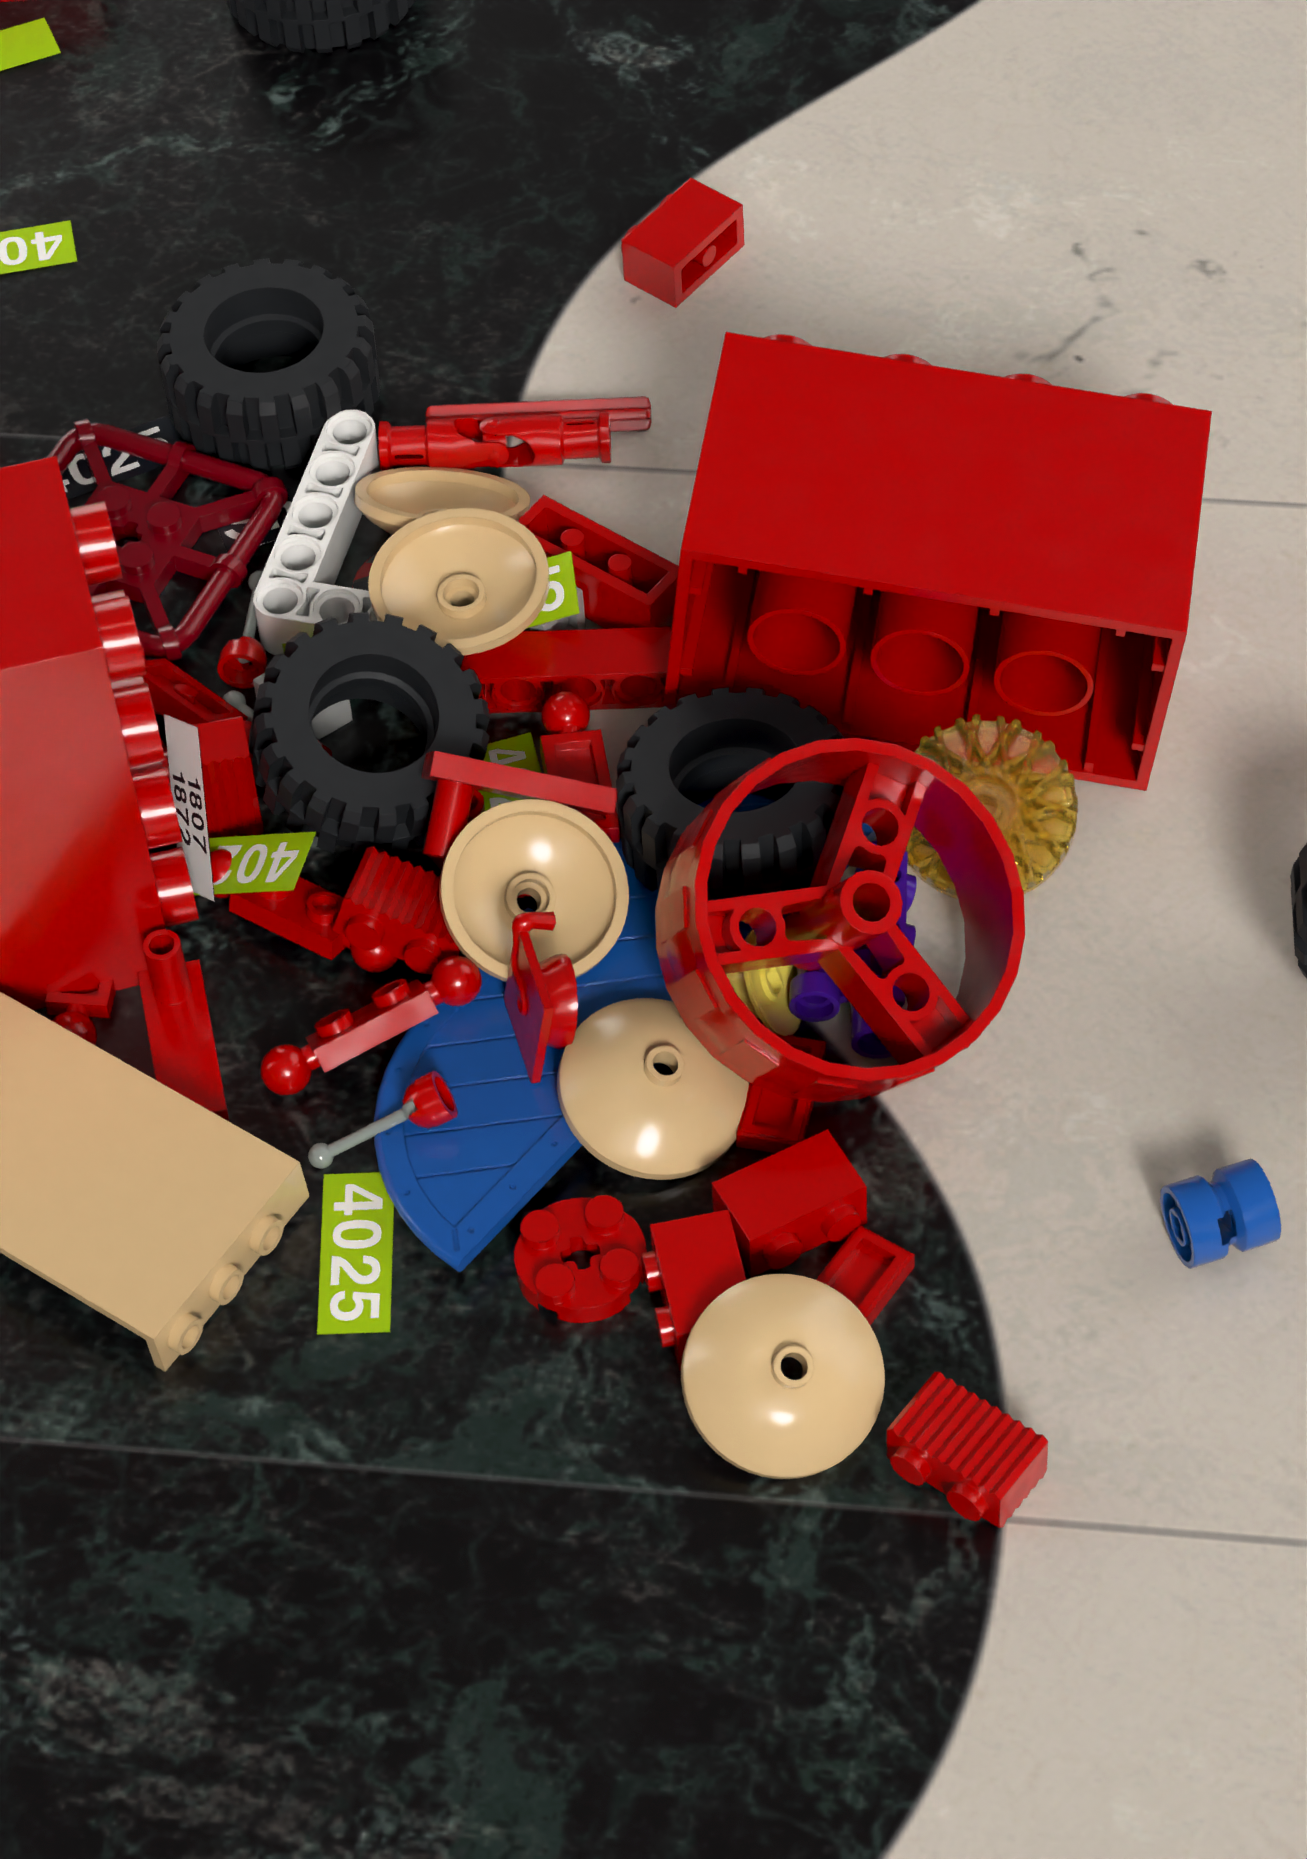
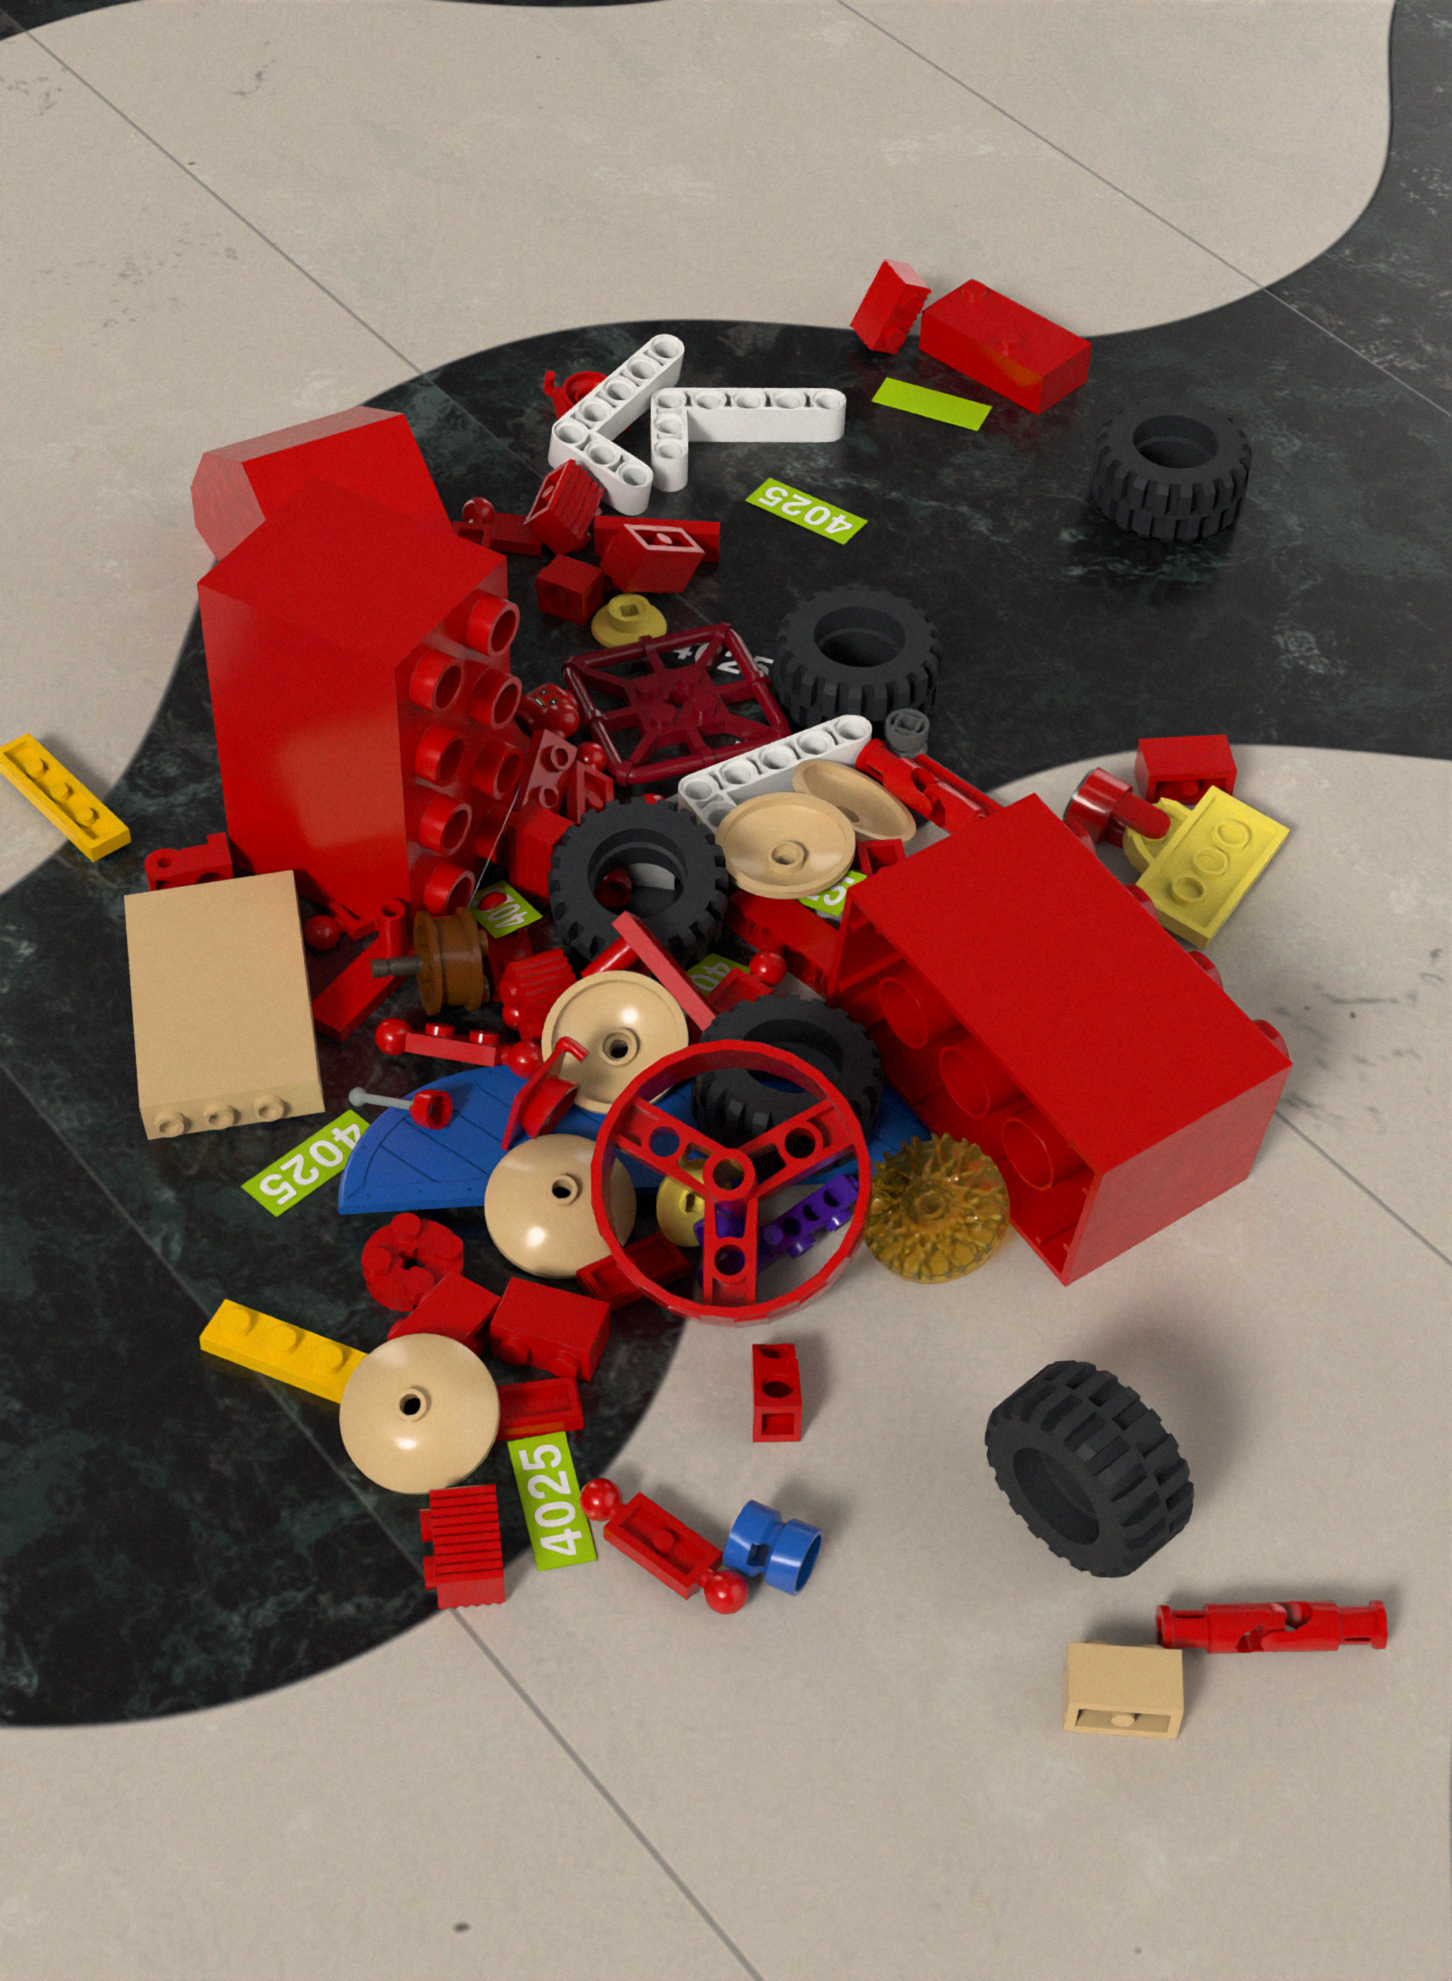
camera: 40 degrees right, 5 degrees down
(262, 953) = (444, 960): none -> reddish brown wheel
(397, 396) = (907, 733): none -> dark grey wheel
(577, 1437) = (280, 1350): none -> yellow plate
(784, 285) = (1190, 861): none -> light yellow plate
(971, 1351) = (551, 1501): none -> lime sticker
(1046, 1083) = (775, 1393): none -> red leg
(1122, 1297) = (663, 1546): none -> red plate

